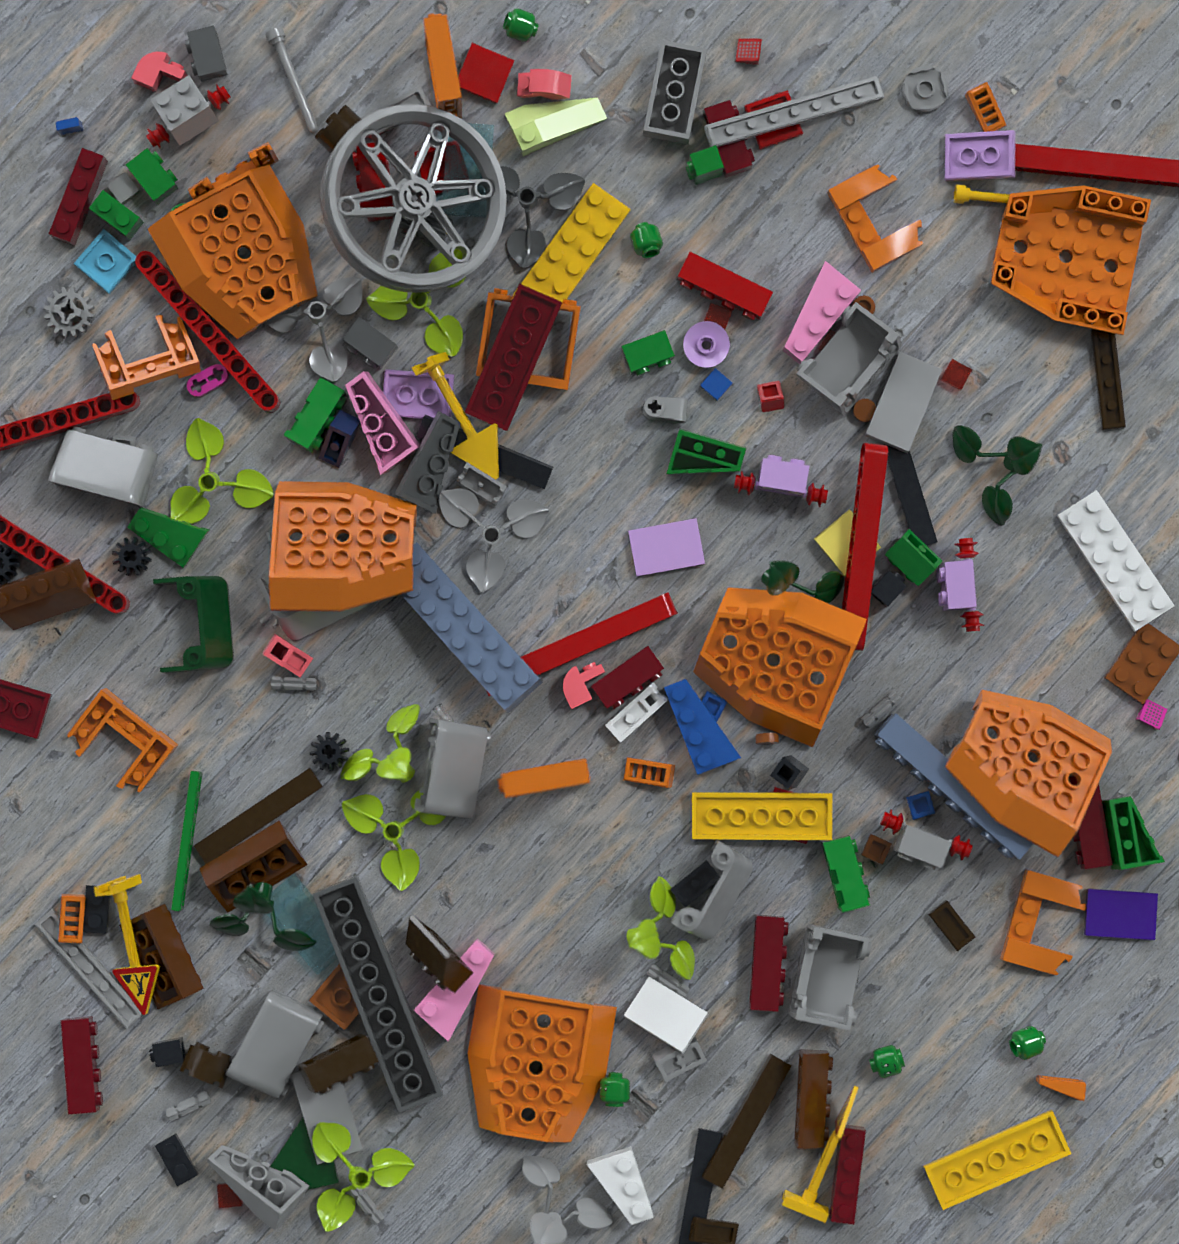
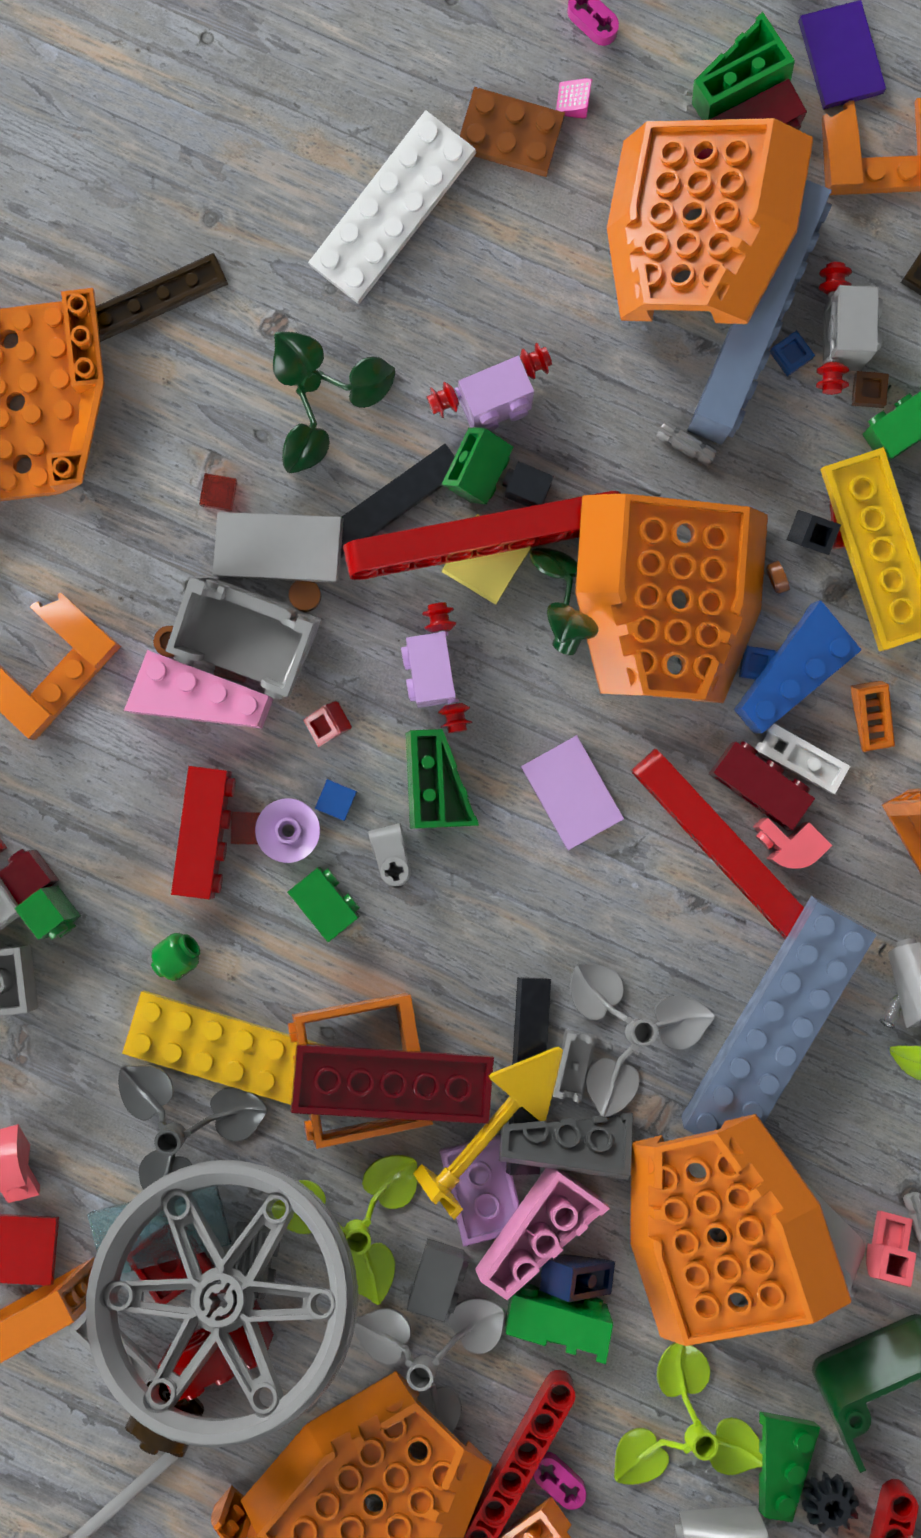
camera: 105 degrees left, 0 degrees up
(549, 122) = (61, 1139): yellowish green wedge -> none

